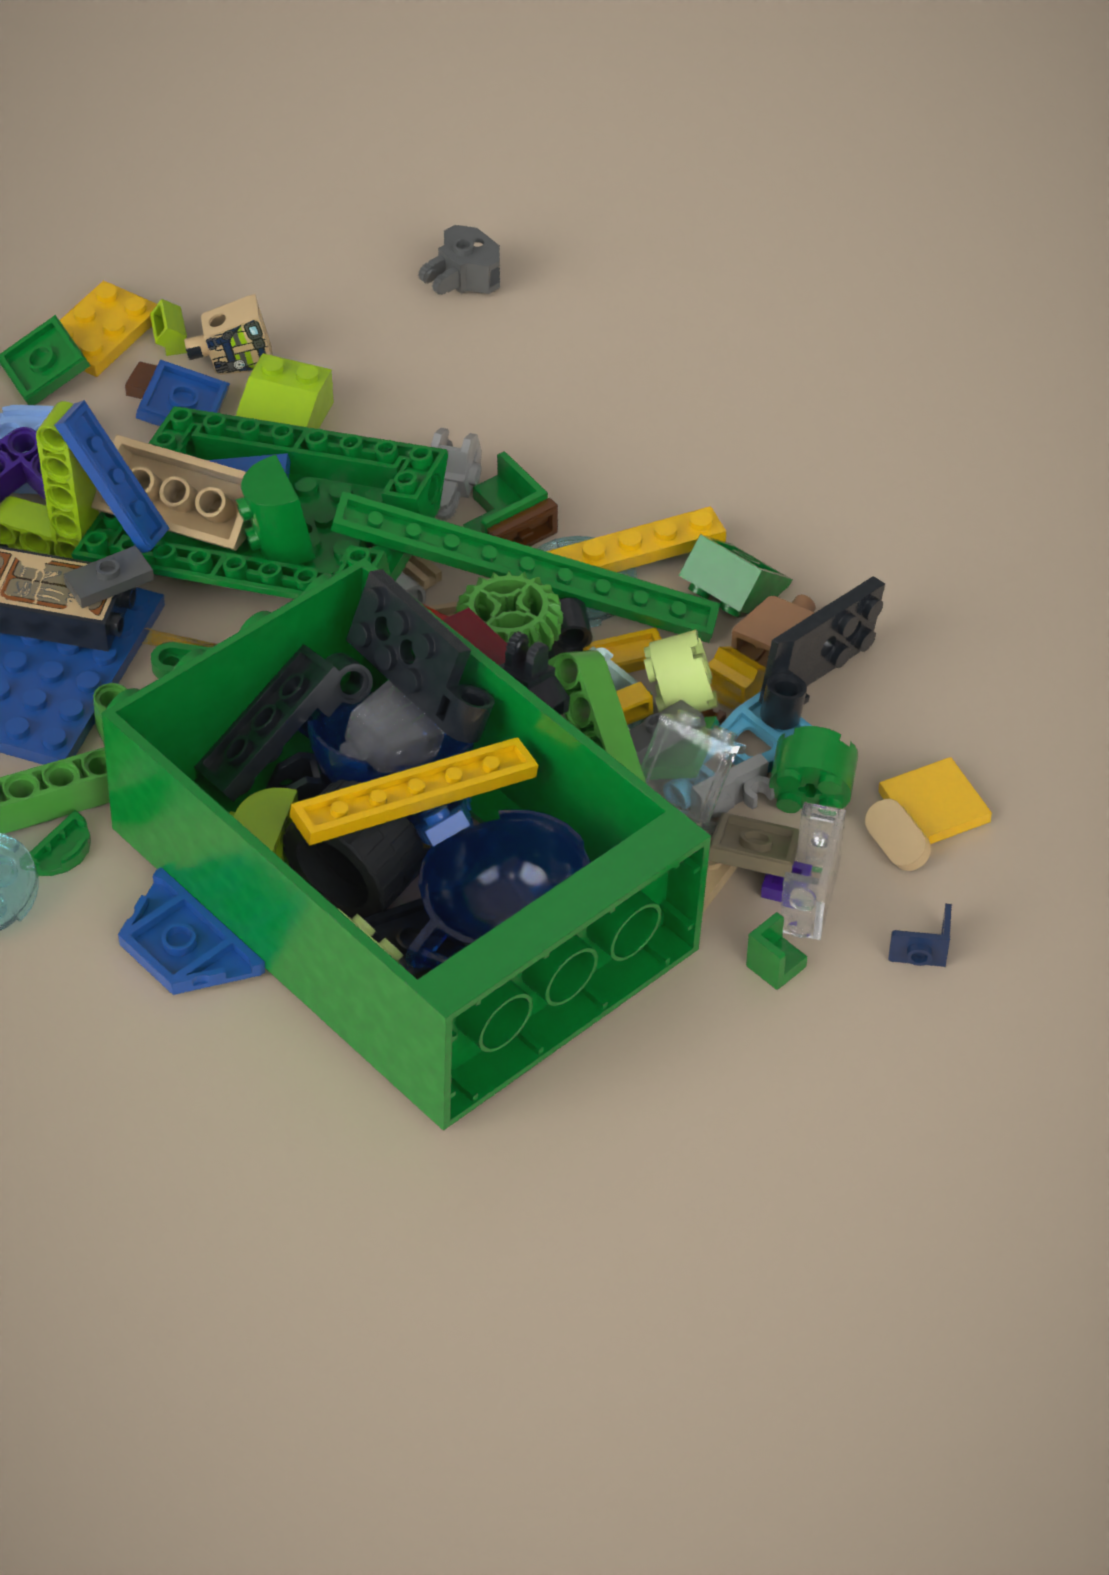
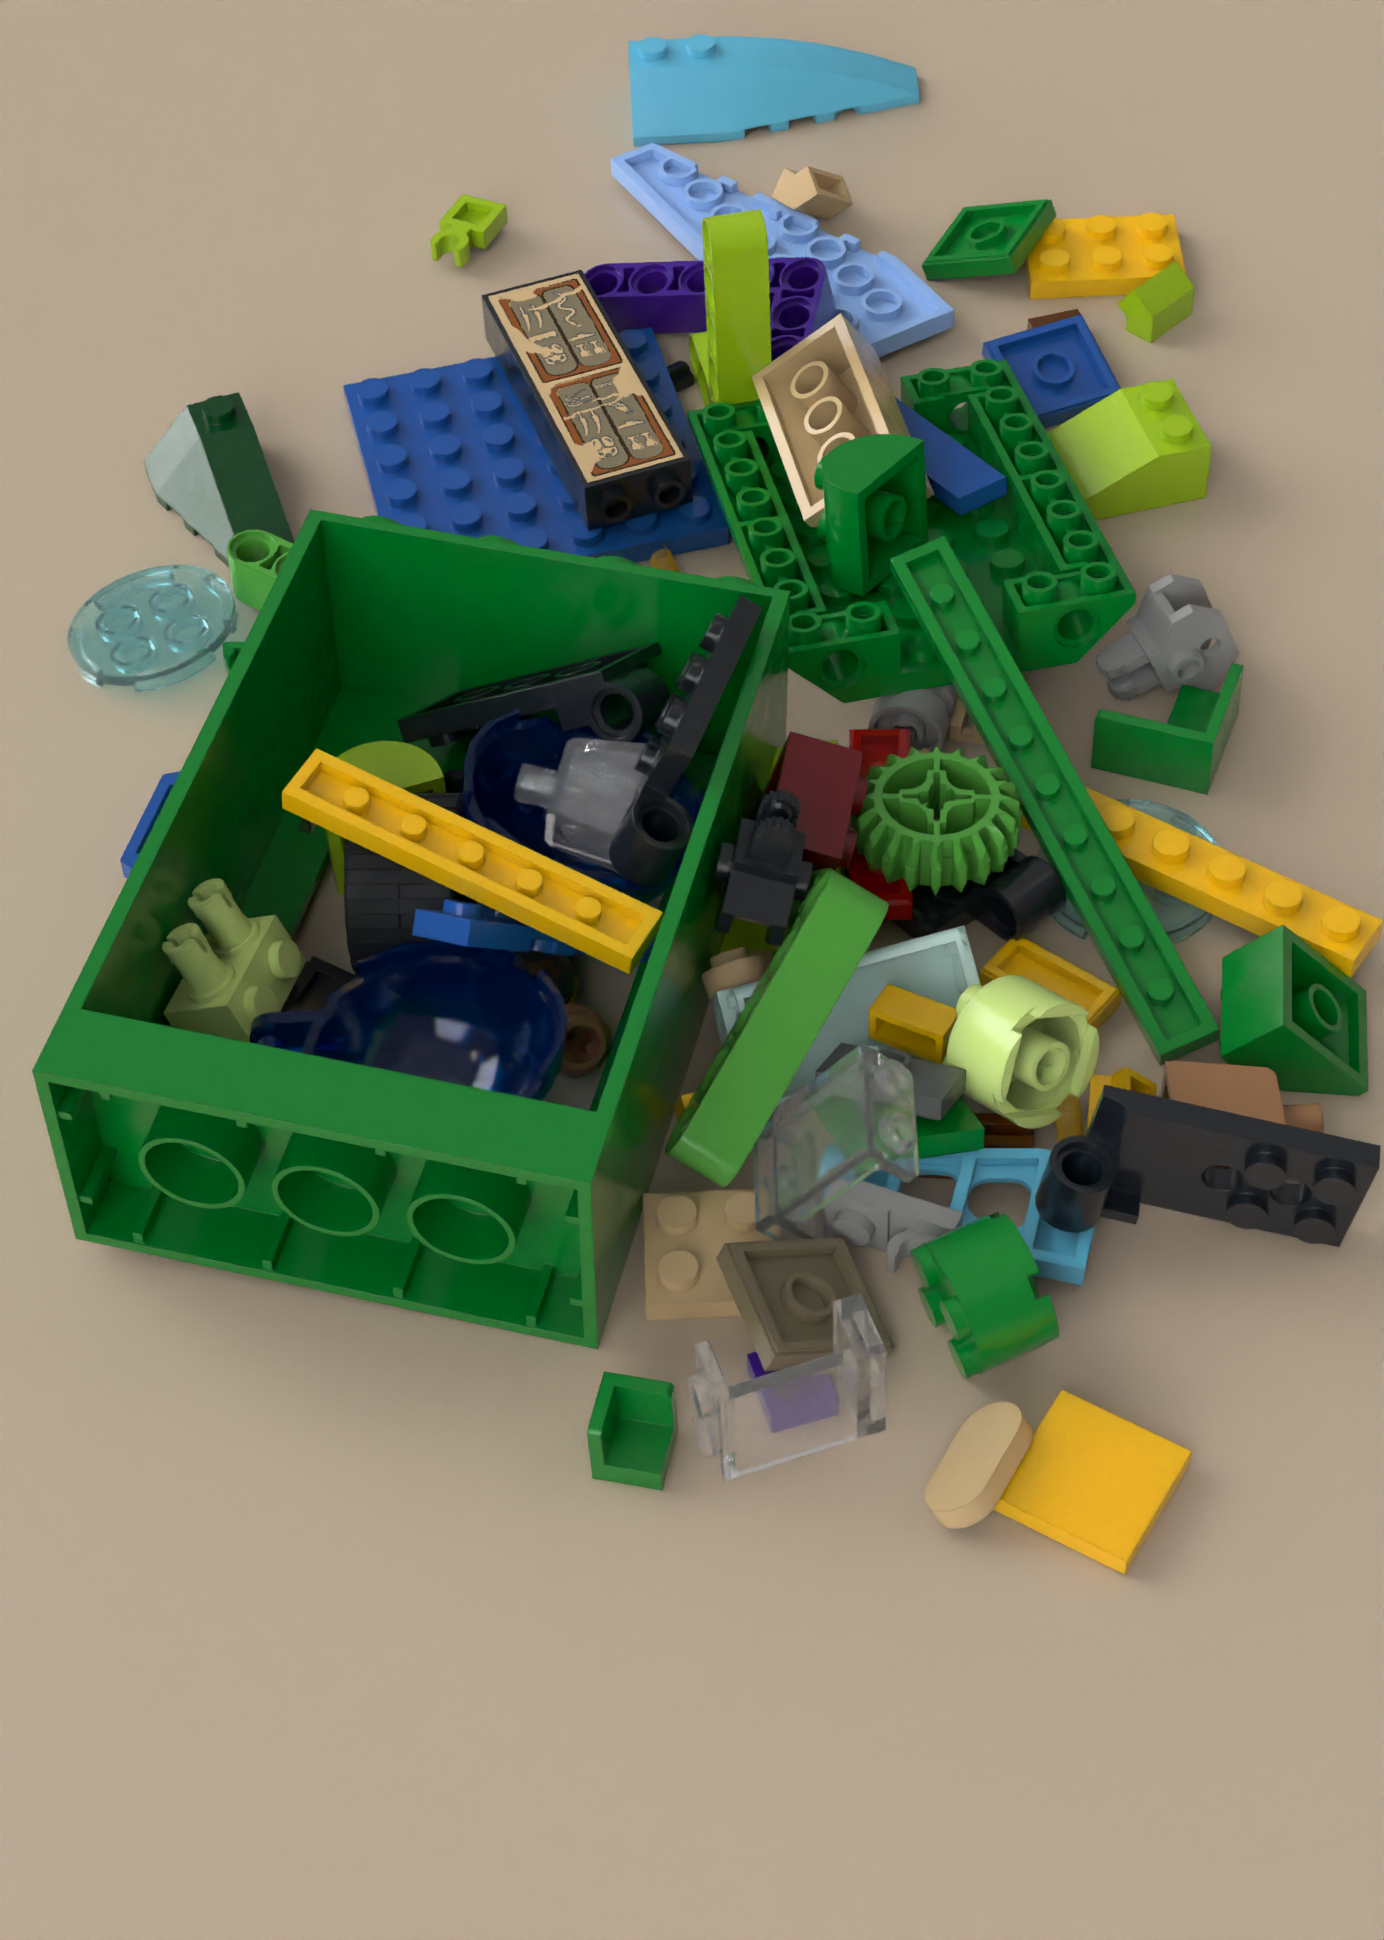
camera: 60 degrees right, 0 degrees up
(108, 576) = (651, 446): dark grey plate -> none
(112, 476) = (741, 335): blue tile -> none
(232, 337) = (1194, 346): torso -> none
(529, 525) = (1152, 767): reddish brown tile -> none
(922, 948) = (801, 1631): dark blue bracket -> none

